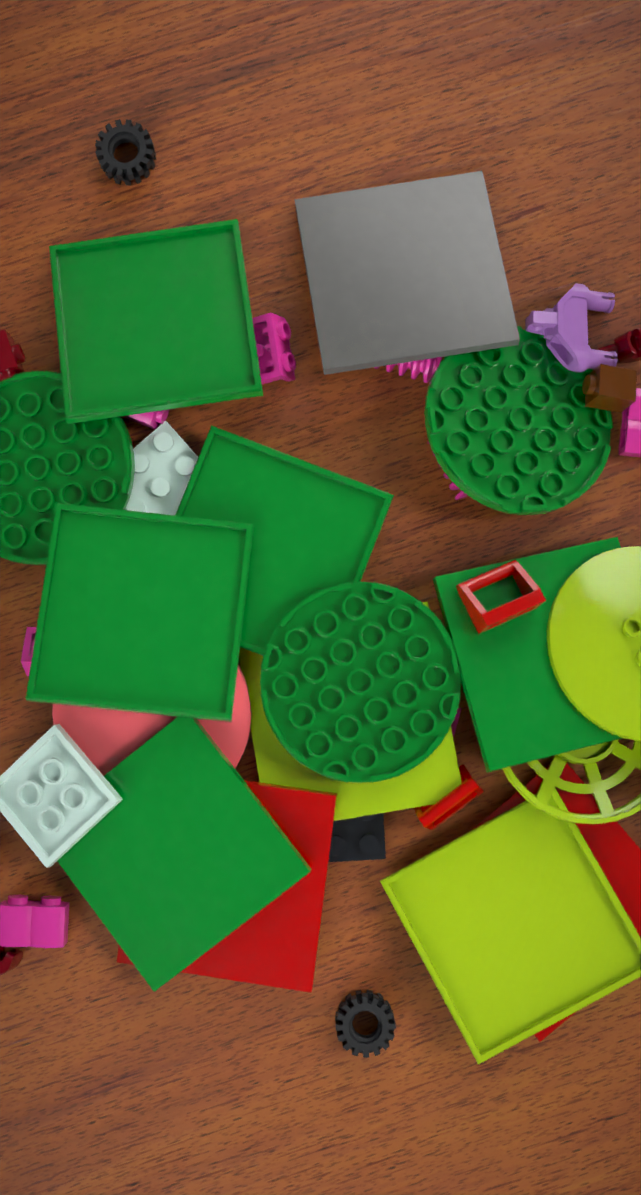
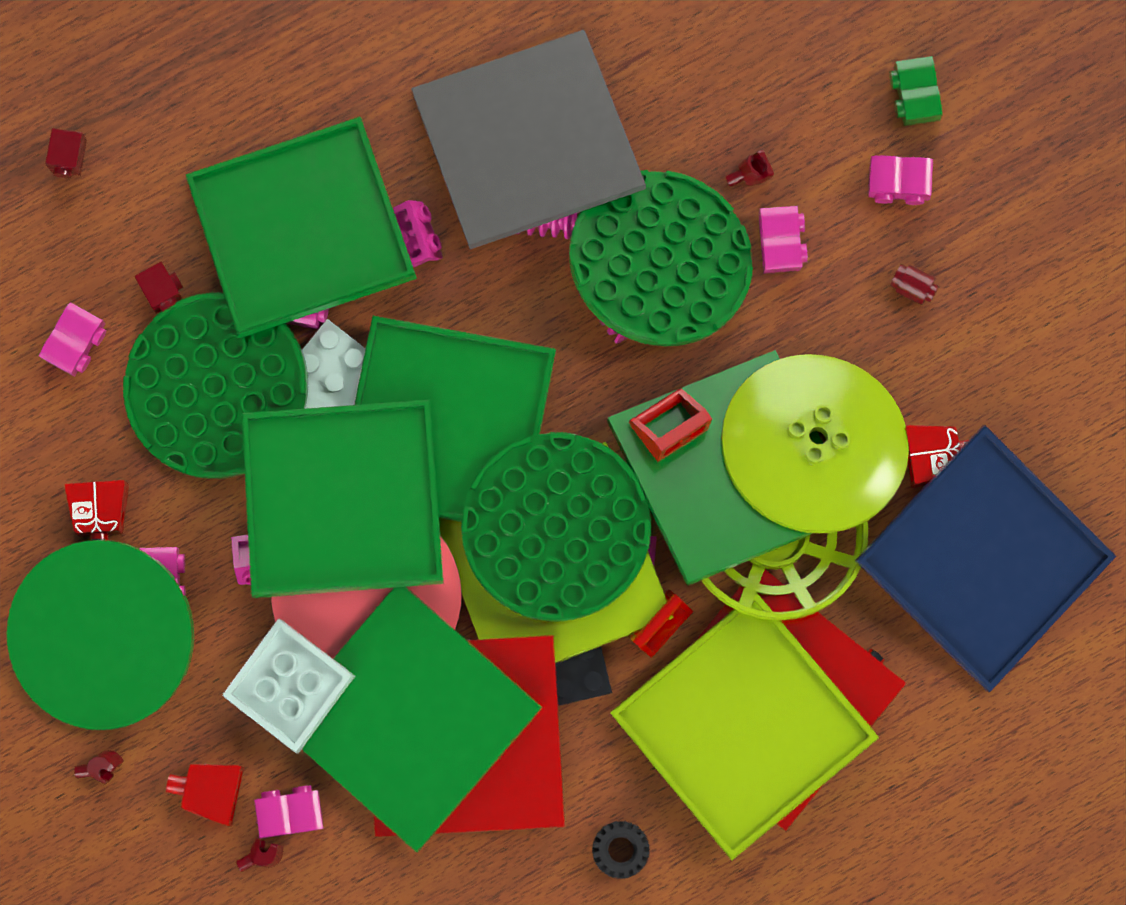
camera: 10 degrees left, 5 degrees down
(125, 134) = (242, 55): black tyre -> none
(567, 328) = (690, 165): medium lavender connector -> none
(610, 388) = (740, 213): reddish brown brick -> none

